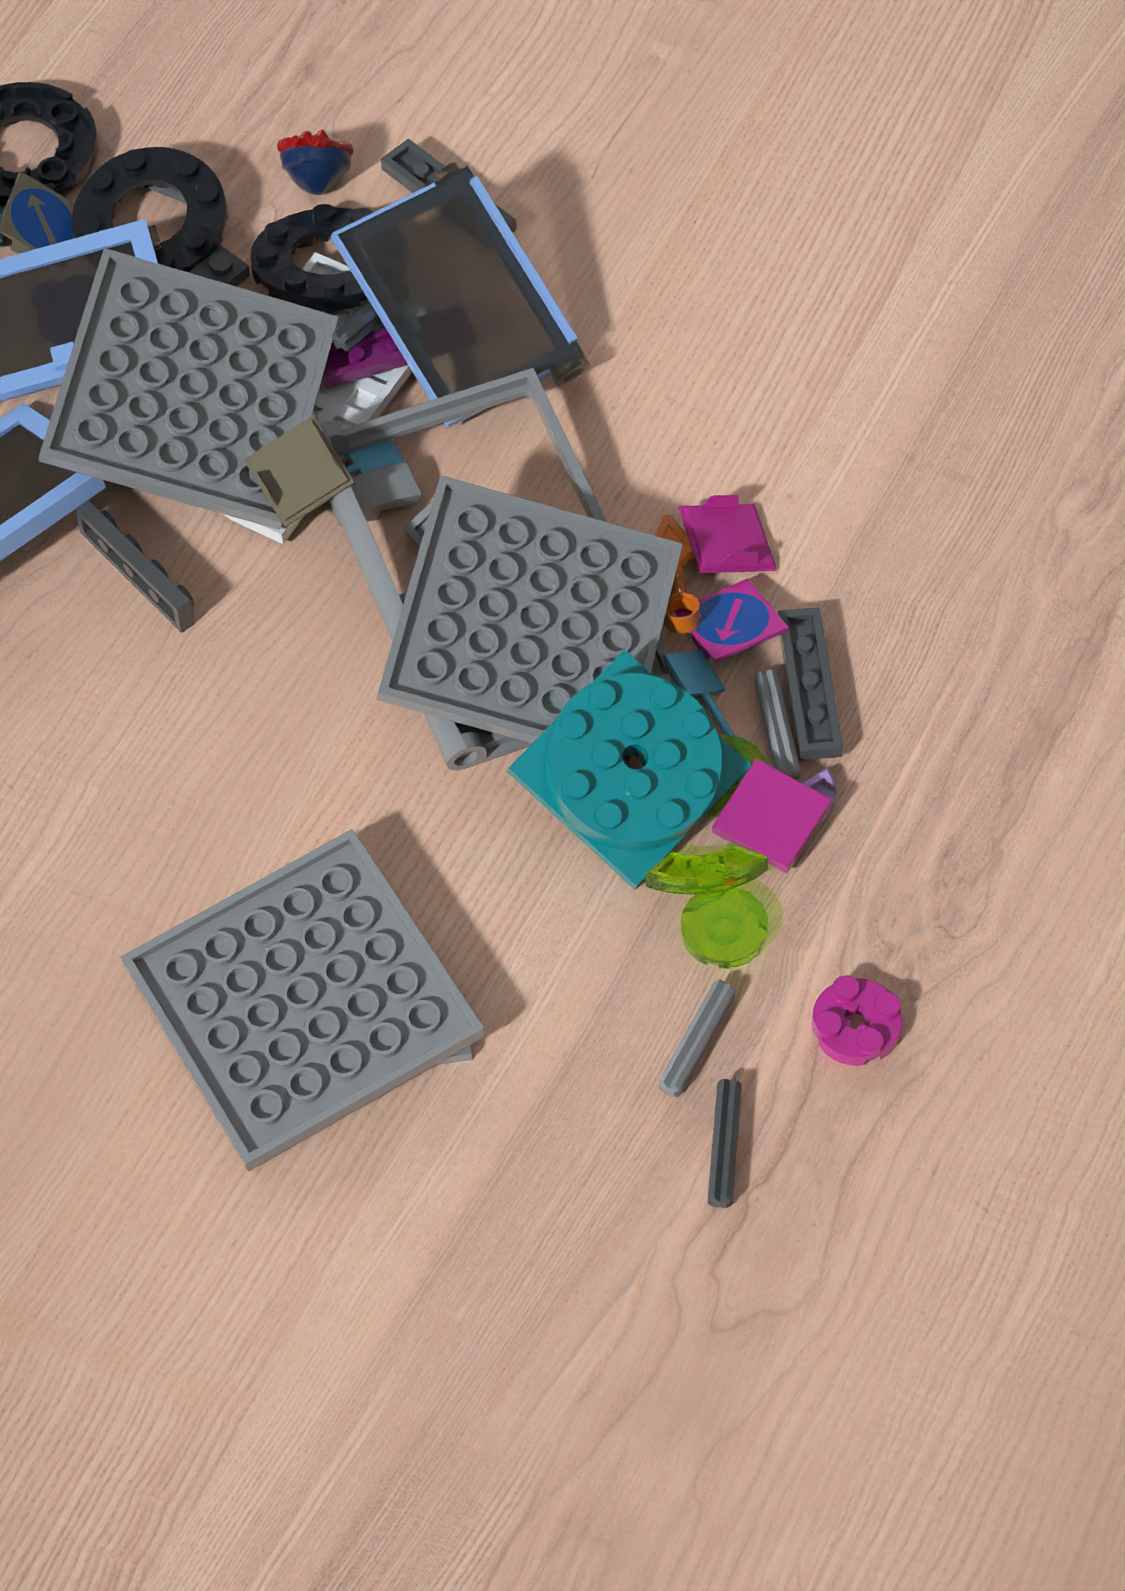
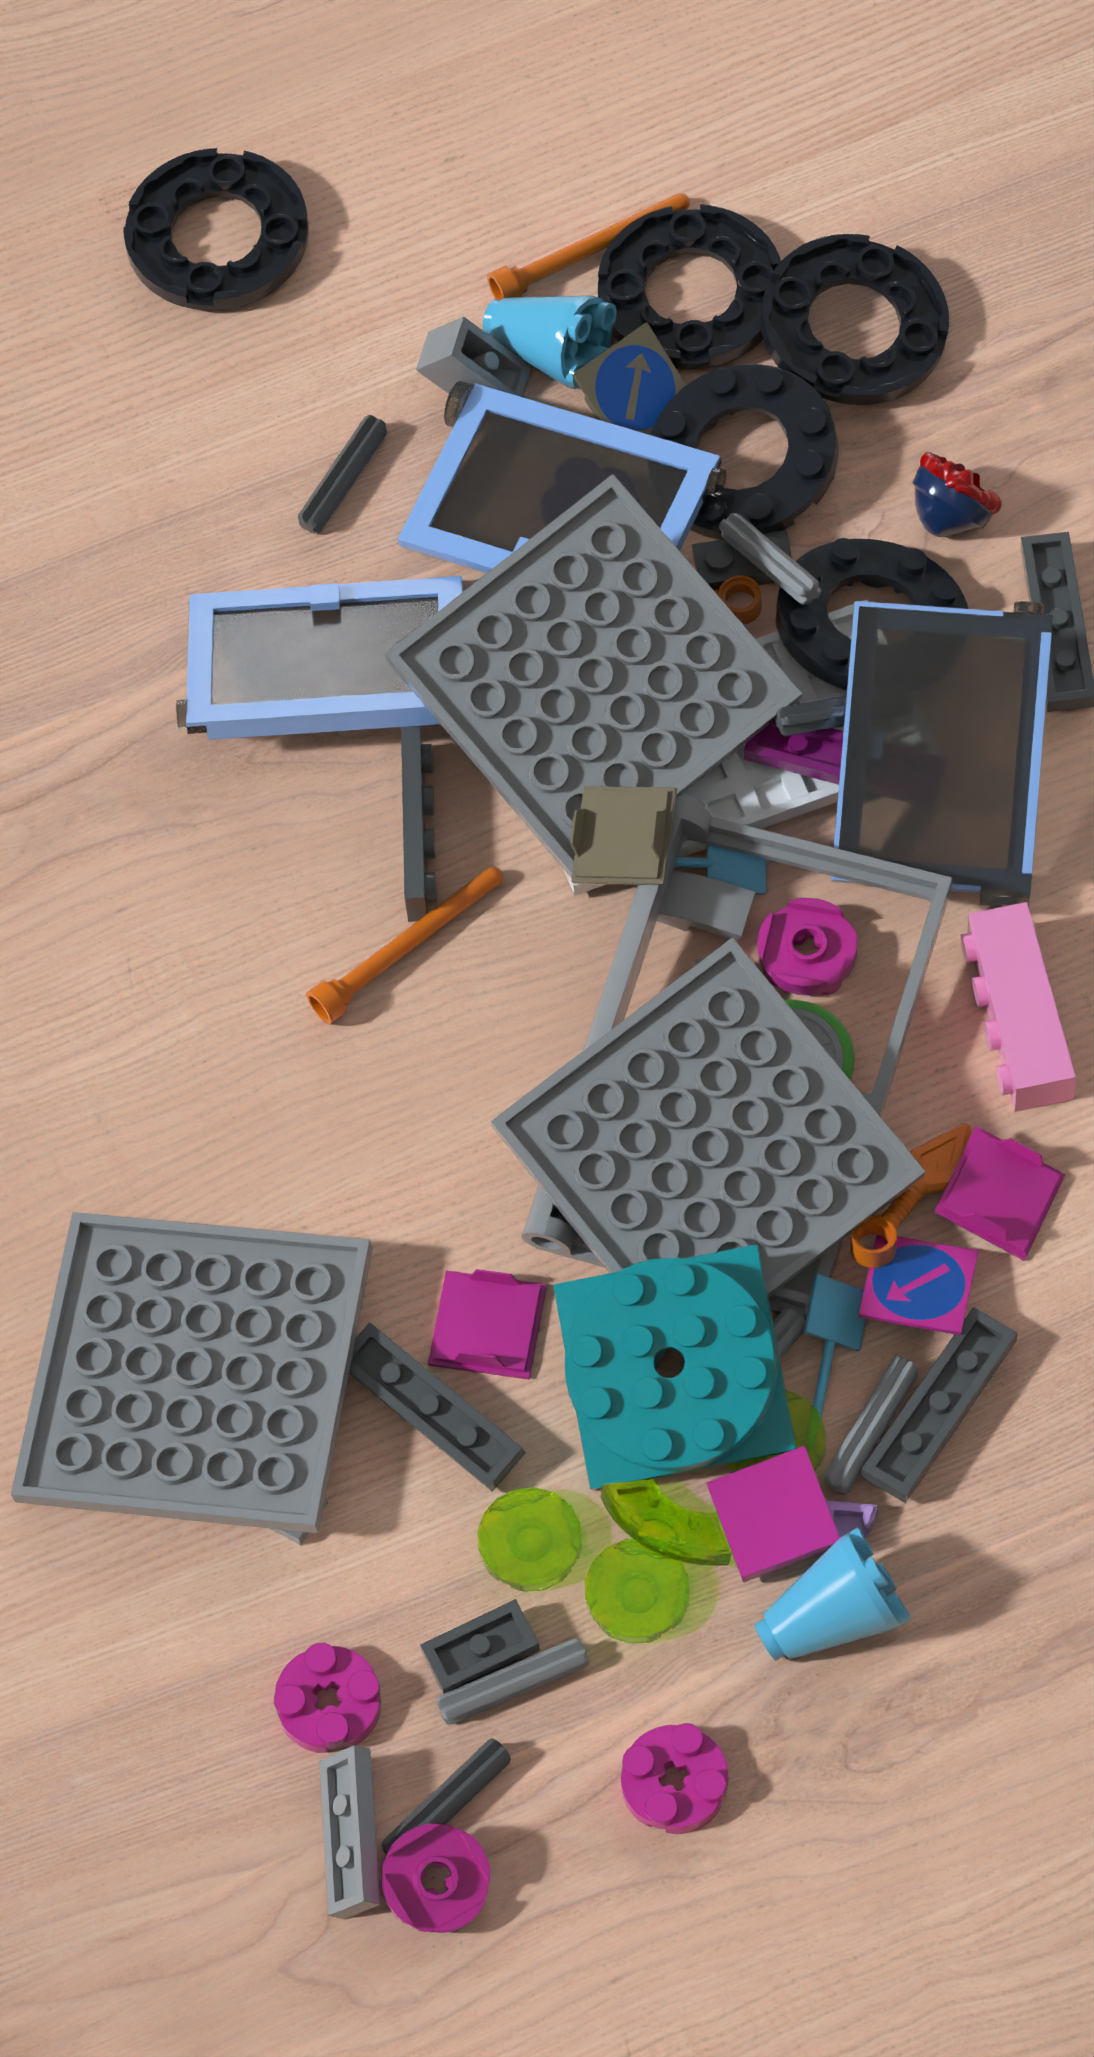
camera: 45 degrees right, 5 degrees up
(153, 58) = (855, 261): none -> black plate
(176, 708) = (332, 997): none -> orange piece
(235, 259) = (770, 559): none -> light grey axle
(464, 455) = (812, 973): none -> dark pink plate
(468, 837) = (487, 1323): none -> dark pink piece
(488, 908) = (433, 1408): none -> dark grey plate
(579, 1113) = (333, 1727): none -> dark pink plate
(624, 945) = (529, 1539): none -> clear neon green tile
(638, 423) = (1019, 1006): none -> bright pink brick
(657, 1031) = (480, 1646): none -> dark grey plate
(682, 1206) = (349, 1832): none -> light grey plate
(745, 1200) = (465, 1886): none -> dark pink plate
(862, 837) = (833, 1602): none -> medium azure cone

